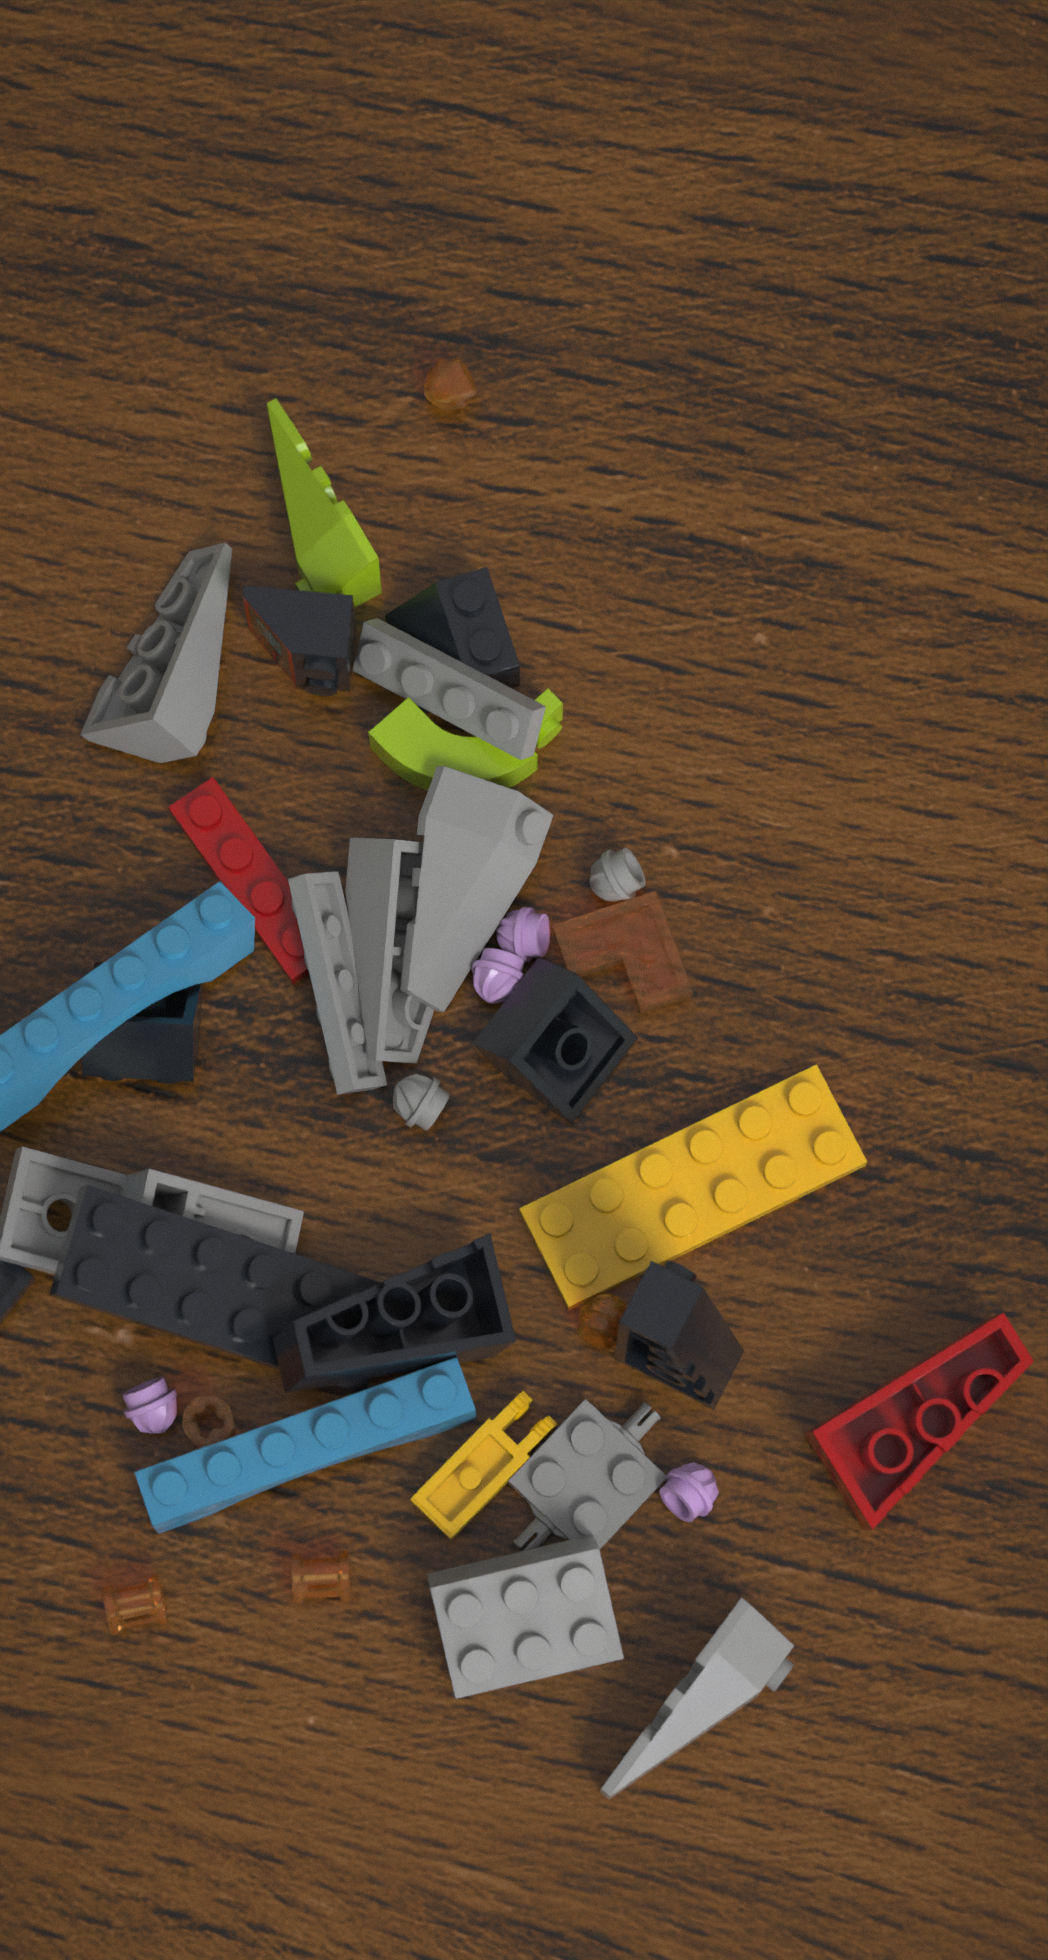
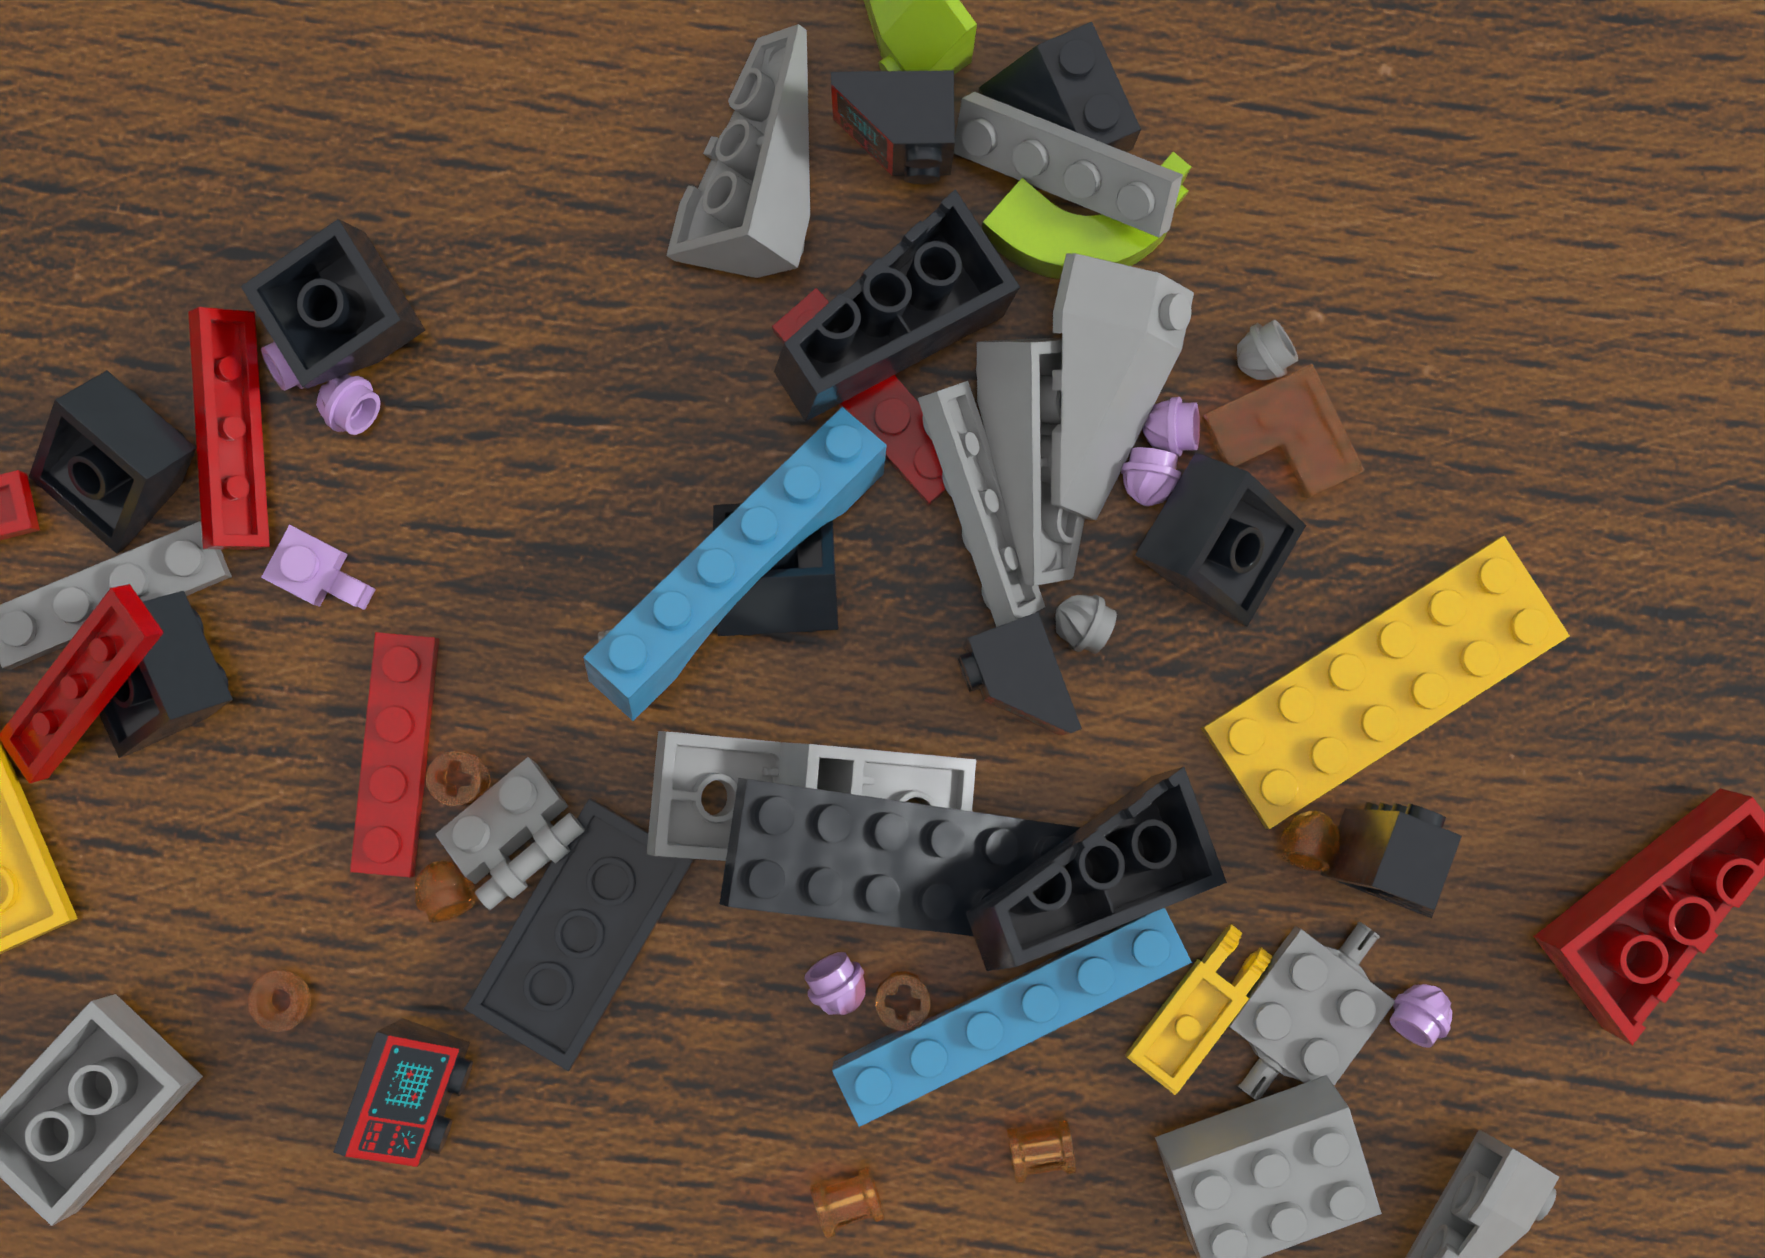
camera: 10 degrees left, 10 degrees up
(282, 803) = (901, 310): none -> black wedge
(349, 1135) = (1020, 674): none -> black slope

